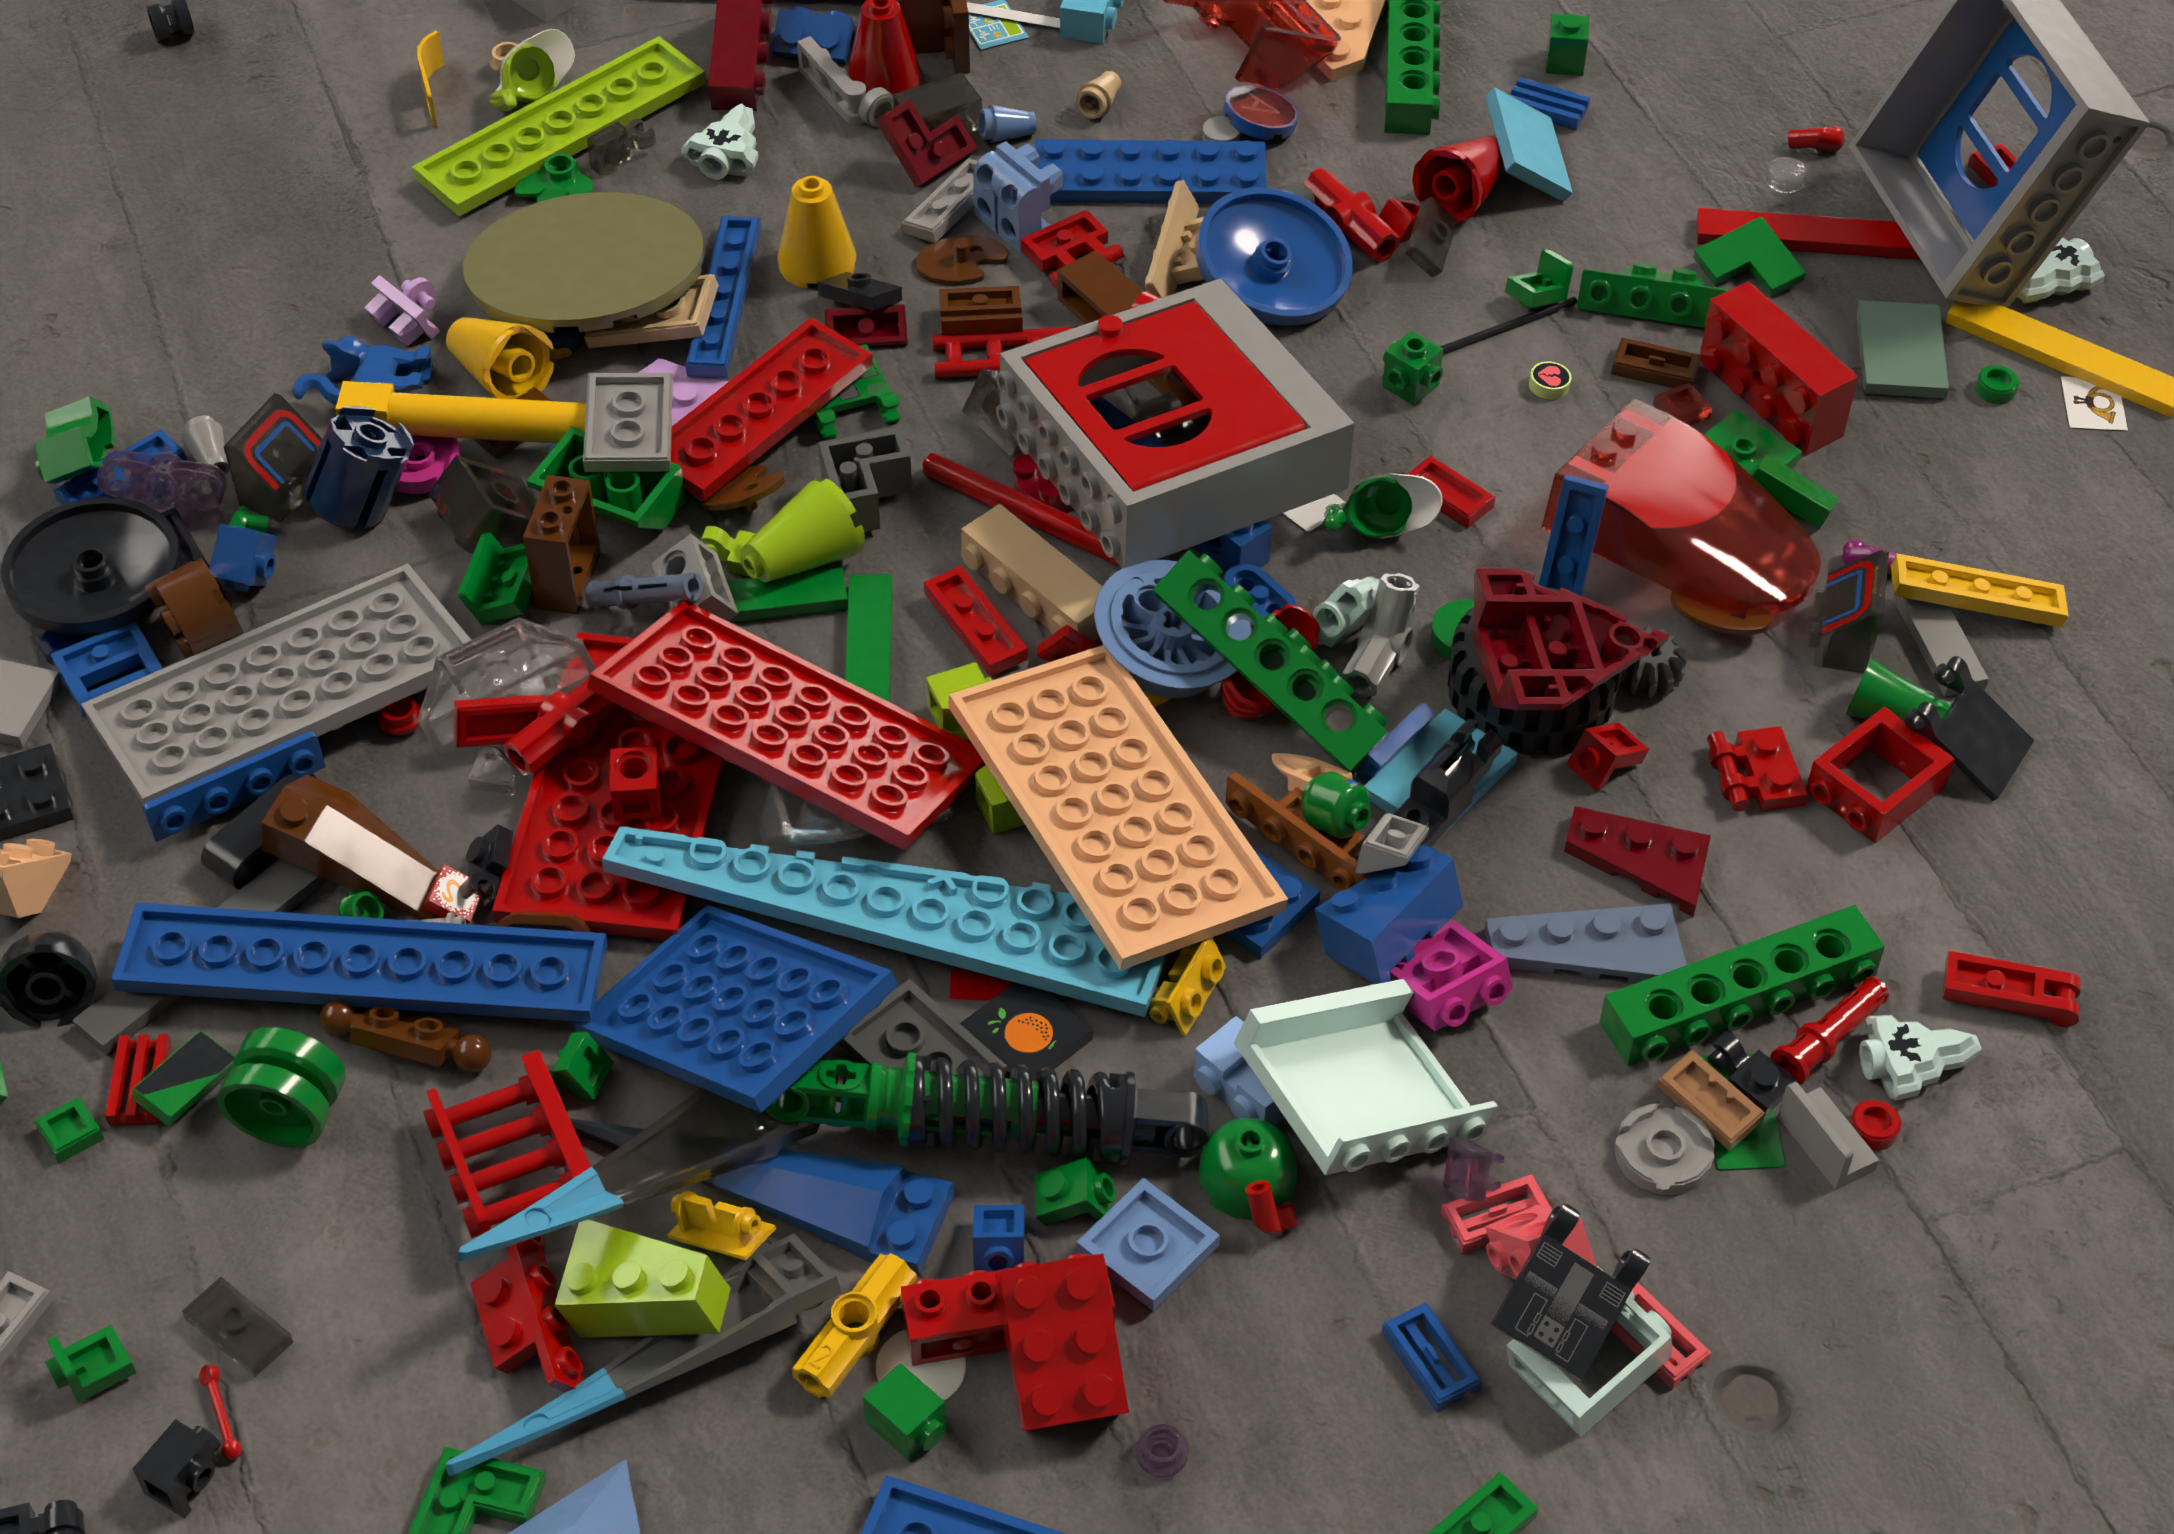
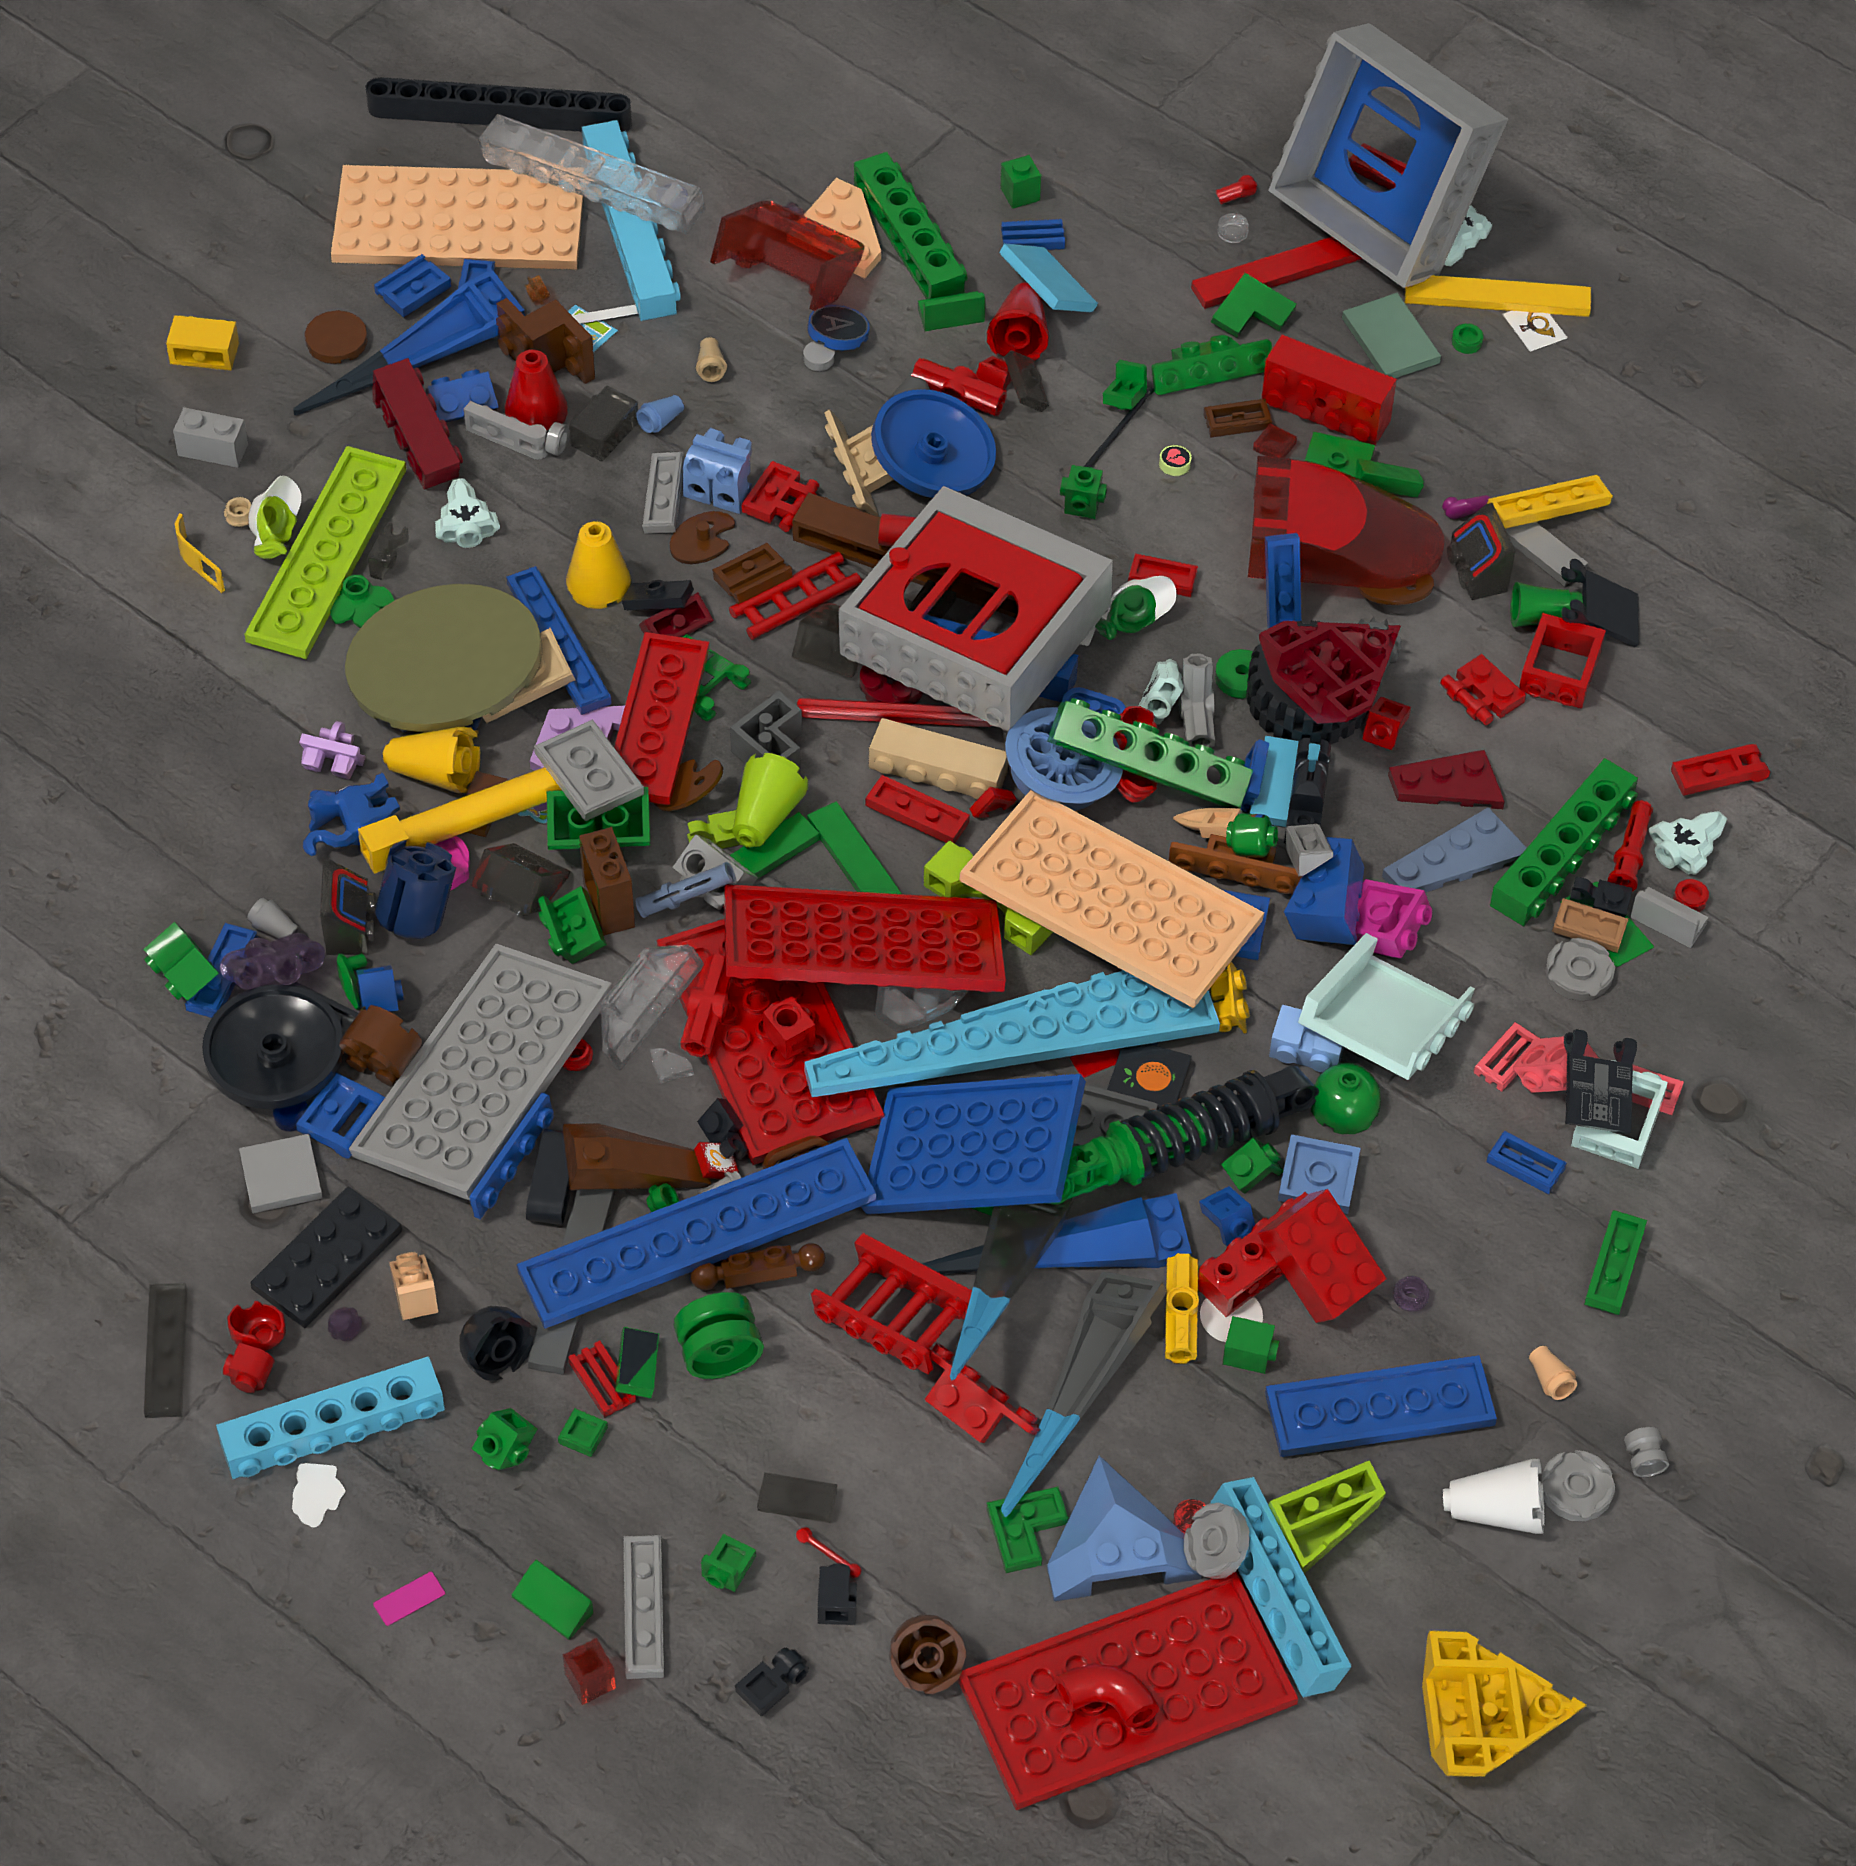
camera: 30 degrees left, 5 degrees up
(493, 719) = (656, 1026): red tile -> none
(581, 1066) = (889, 1229): green tile -> none
(638, 1286) = (1043, 1347): lime wedge -> none
(718, 1227) = (1064, 1289): yellow hinge -> none
(920, 150) = (617, 459): dark red plate -> none
(1148, 168) = (795, 404): blue plate -> none
(1265, 1214) = (1379, 1119): red arm -> none
(1397, 138) = (952, 310): none -> green panel
(1469, 1169) = (1481, 1036): tile -> none

